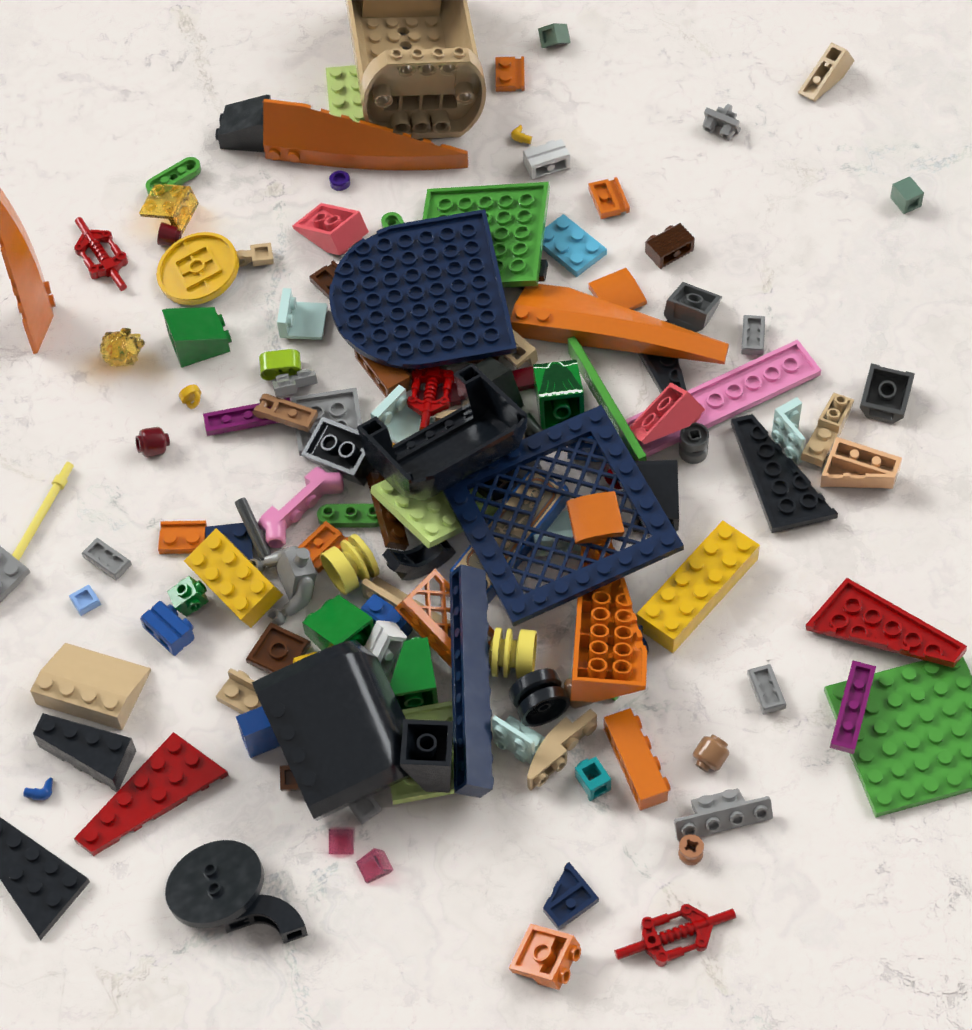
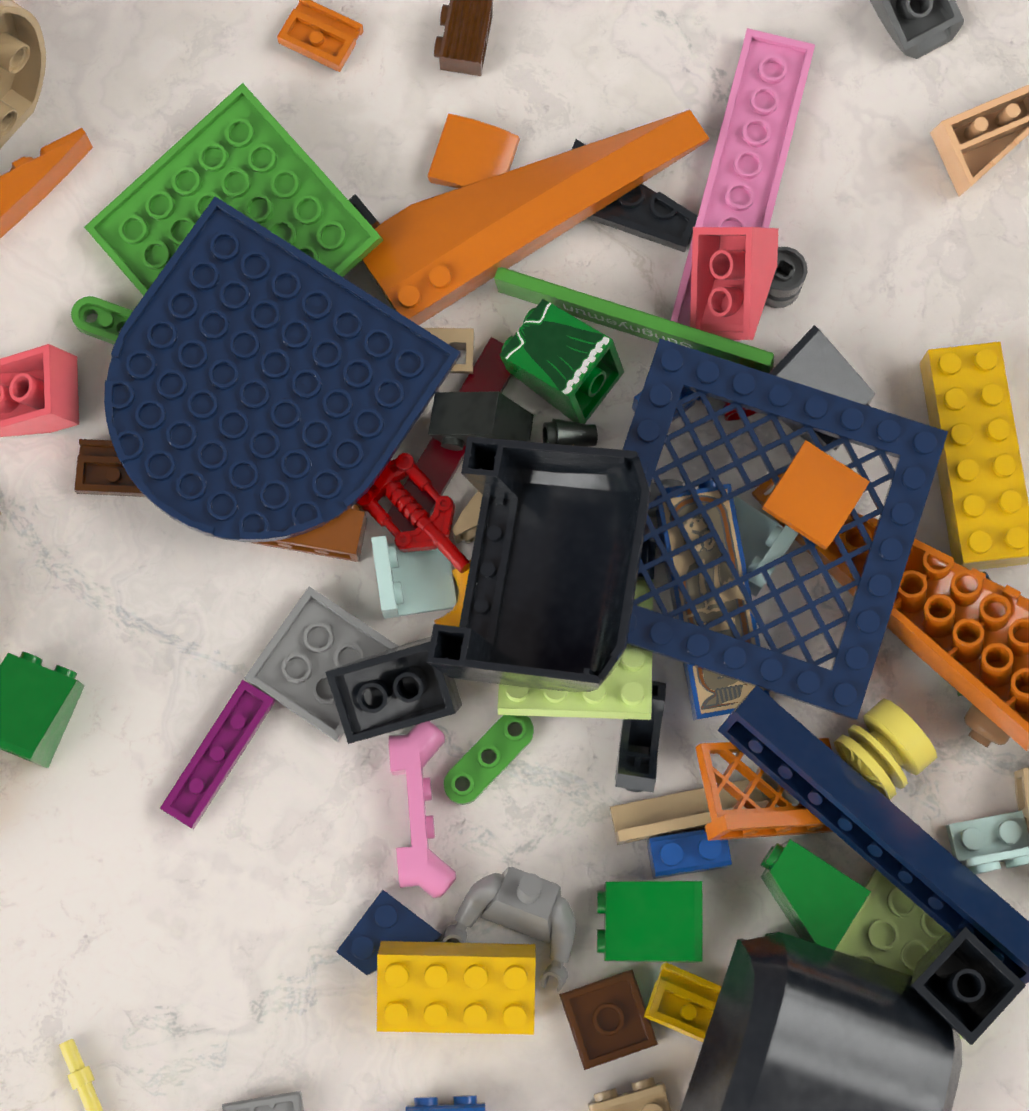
camera: 50 degrees left, 20 degrees up
(152, 441) = (139, 909): dark red head -> none
(181, 536) = (320, 991): orange plate -> none
(188, 595) = (427, 1065): green brick -> none
(189, 394) = (107, 801): yellow tile -> none
(252, 528) = (402, 898): dark grey axle -> none
(279, 362) = (176, 646): lime beam -> none
(285, 412) = (268, 708): medium nougat plate -> none
(288, 385) = (219, 661): light grey plate -> none
(300, 319) = (131, 556): light aqua bracket -> none
(321, 540) = (505, 833): orange plate -> none
(353, 562) = (576, 829): light yellow wheel -> none
(386, 643) = (736, 897): white brick -> none
(391, 528) = (569, 734): reddish brown plate -> none
(520, 137) = (112, 45): yellow animal -> none
(539, 697) = (973, 776): black wheel -> none
(546, 158) = (185, 47): white brick -> none
(571, 245) = (347, 140): medium azure plate -> none
(691, 307) = (584, 96): dark grey slope -> none
(753, 335) = (688, 68): light grey plate -> none
(779, 483) = (921, 236): black wing -> none
(786, 430) = (871, 167): light aqua bracket -> none
(828, 428) = (900, 118): tan slope -> none

